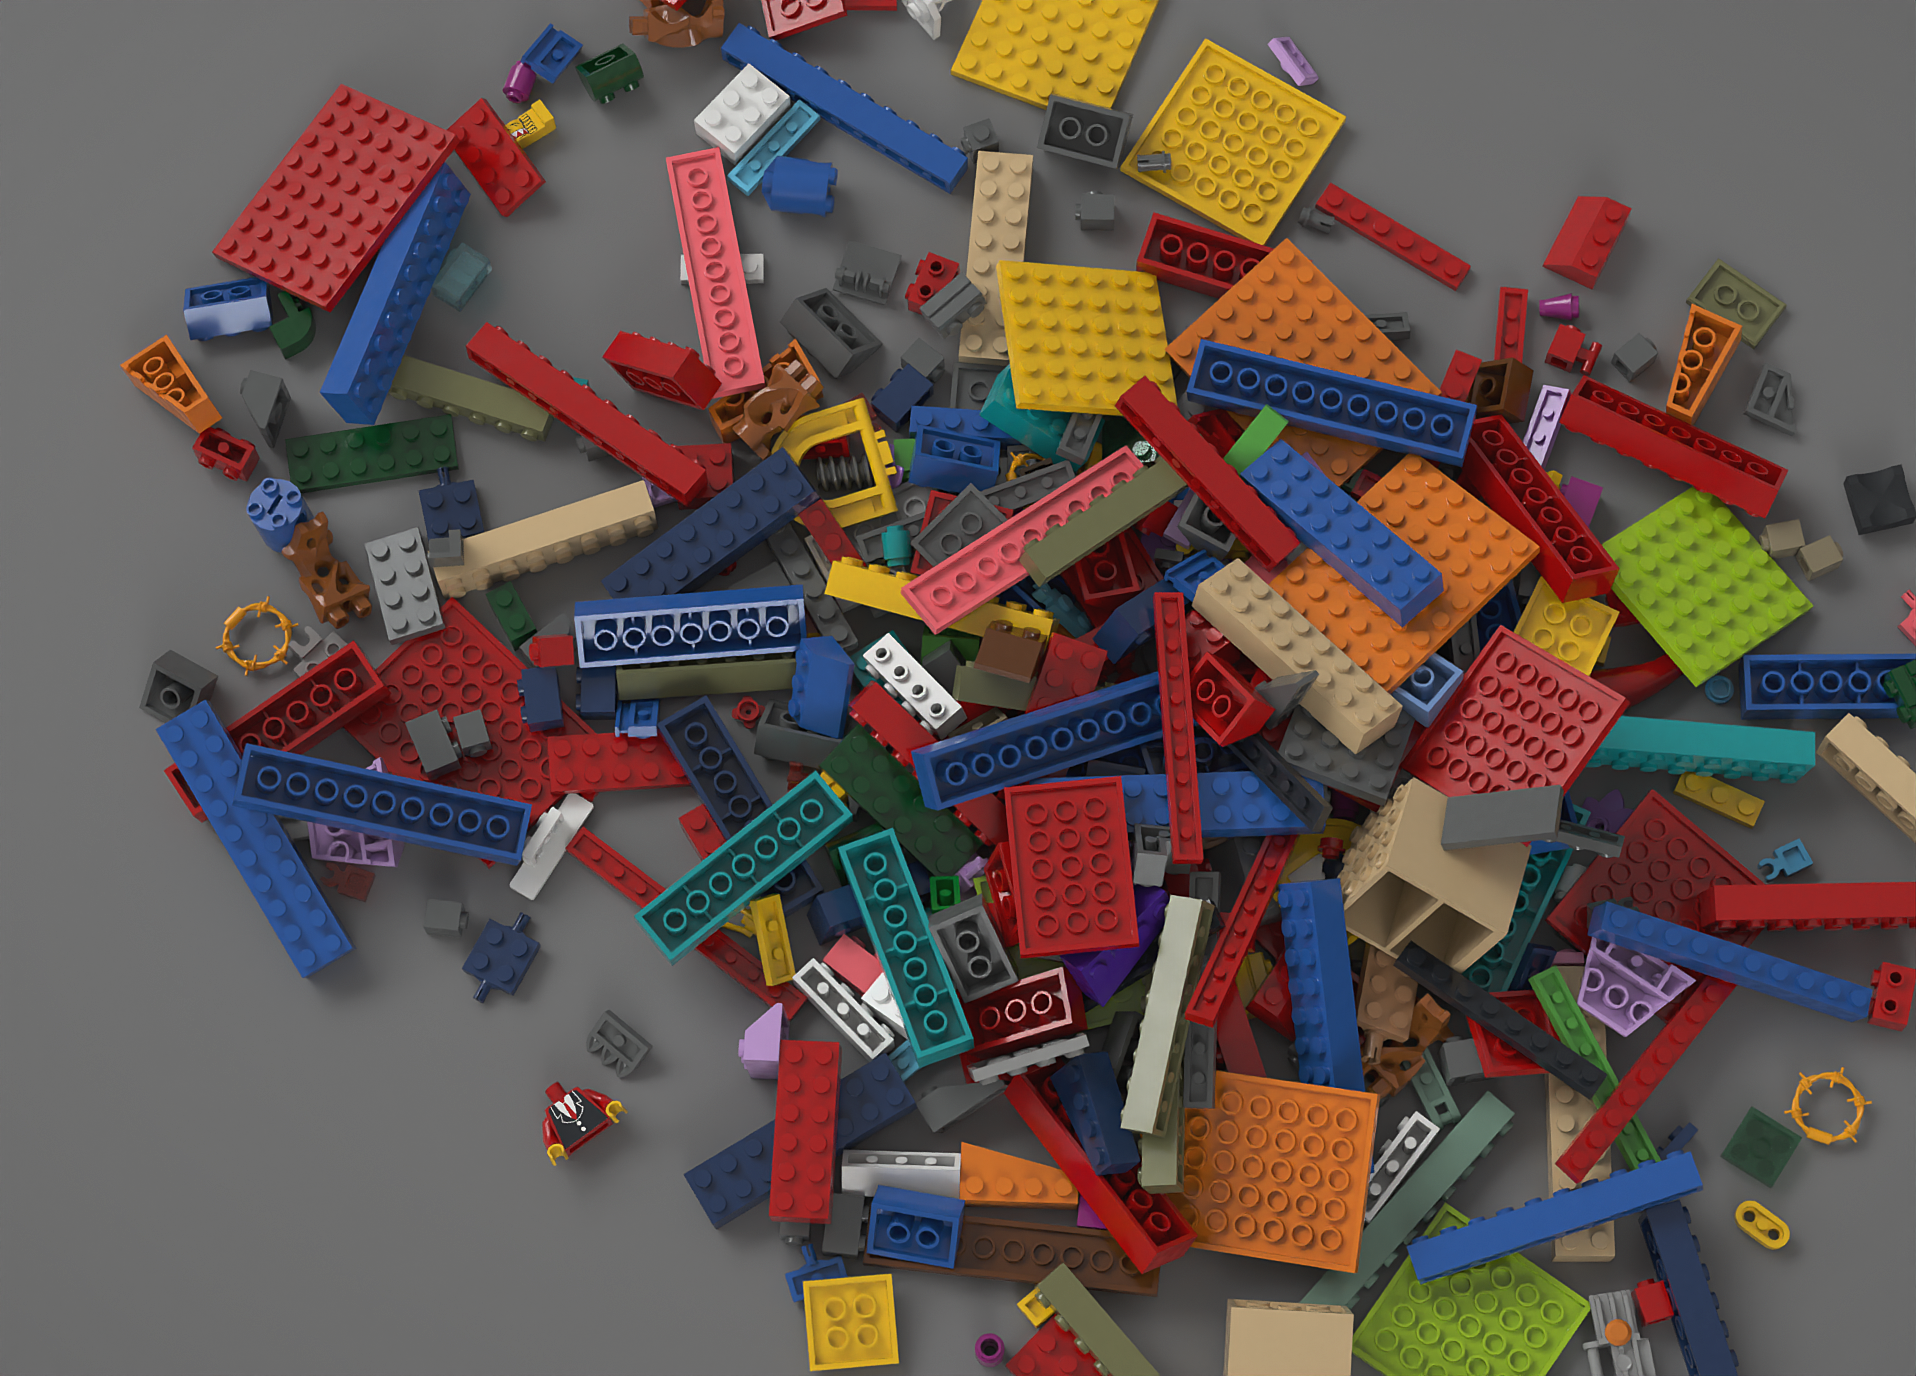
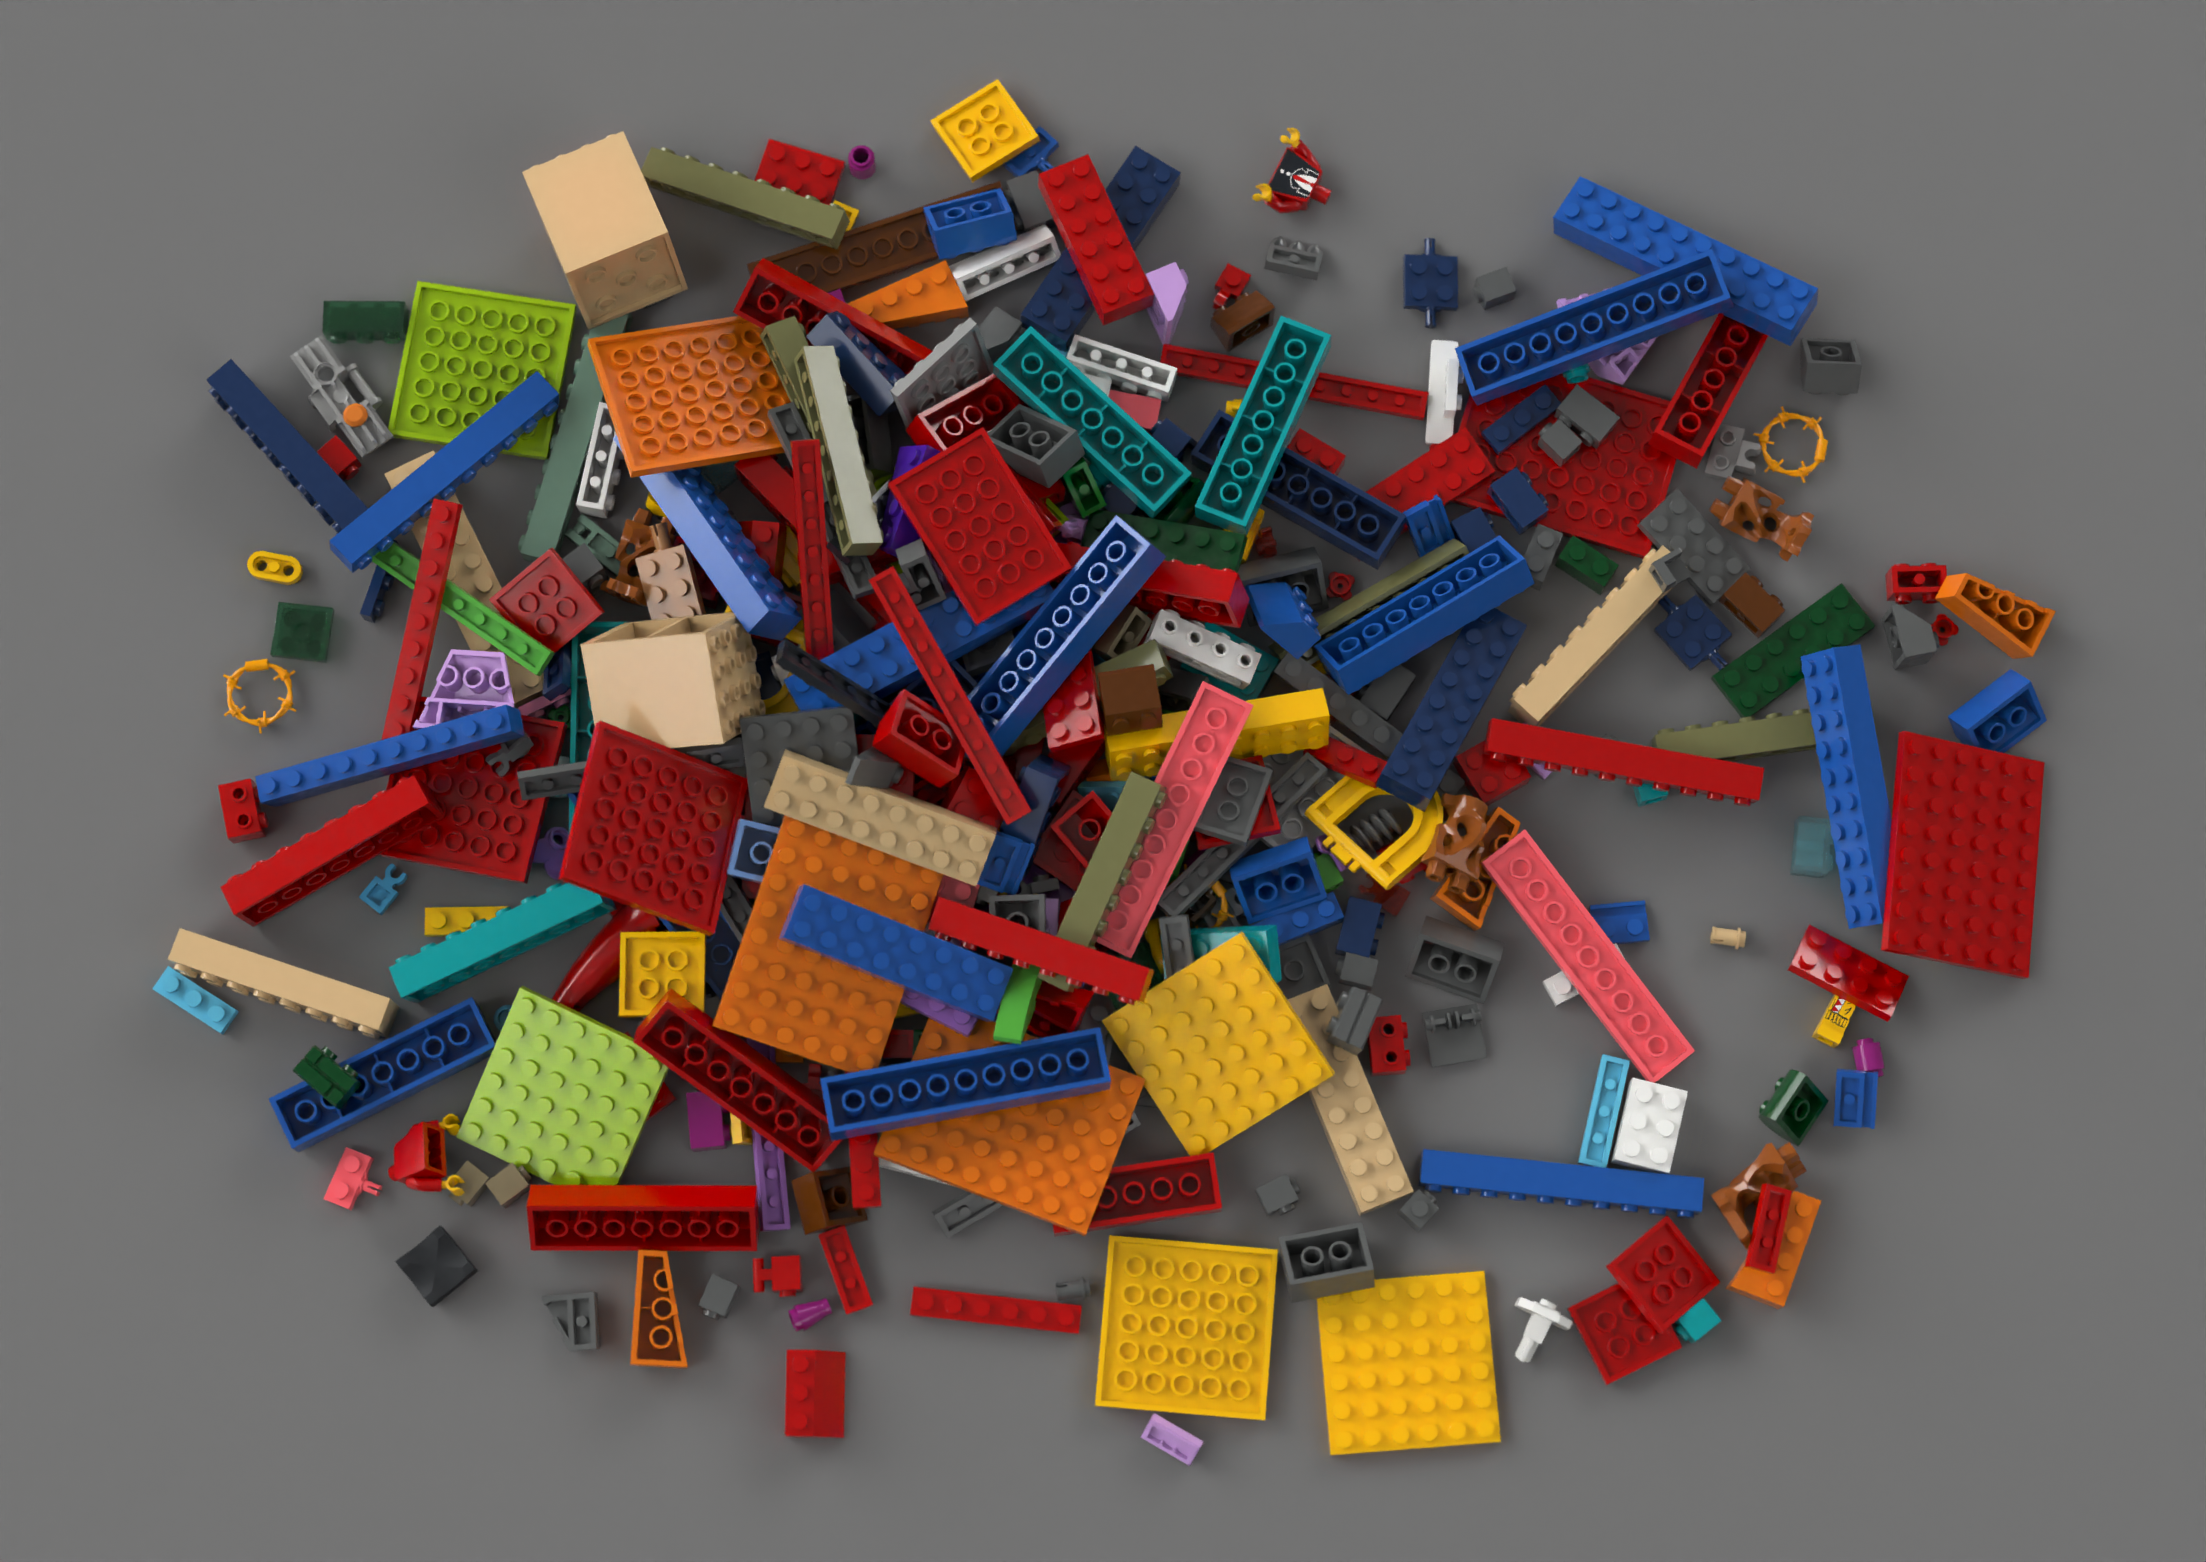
camera: 150 degrees right, 5 degrees up
(228, 401) = (1950, 628): none -> red plate
(276, 510) = (1833, 543): blue cylinder -> none
(297, 330) = (1928, 718): dark green brick -> none
(352, 883) = (1589, 280): clear red plate -> none
(382, 506) = (1752, 604): none -> reddish brown brick
(496, 775) = (1521, 419): none -> dark blue plate
(552, 650) = (1531, 535): red brick -> none
(578, 238) = (1728, 937): none -> tan pin
(662, 369) = (1578, 829): red brick -> none
(665, 297) = (1622, 921): none -> blue plate
(692, 1051) = (1230, 285): none -> red plate
(701, 1003) = (1243, 319): none -> reddish brown slope
(772, 939) = (1209, 389): yellow plate -> none
(799, 186) = (1556, 1078): blue cylinder -> none
(896, 546) = (1285, 771): teal brick -> none
(1154, 162) = (1247, 1264): dark grey pin -> none
(1331, 847) = (775, 687): red plate -> none
(1500, 1020) = (561, 602): black plate -> none
(1502, 817) = (626, 731): dark grey tile -> none
(1545, 934) = (561, 711): none -> green plate
(1738, 300) = (650, 1401): olive tile -> none
(1854, 593) = (422, 1157): none -> red torso

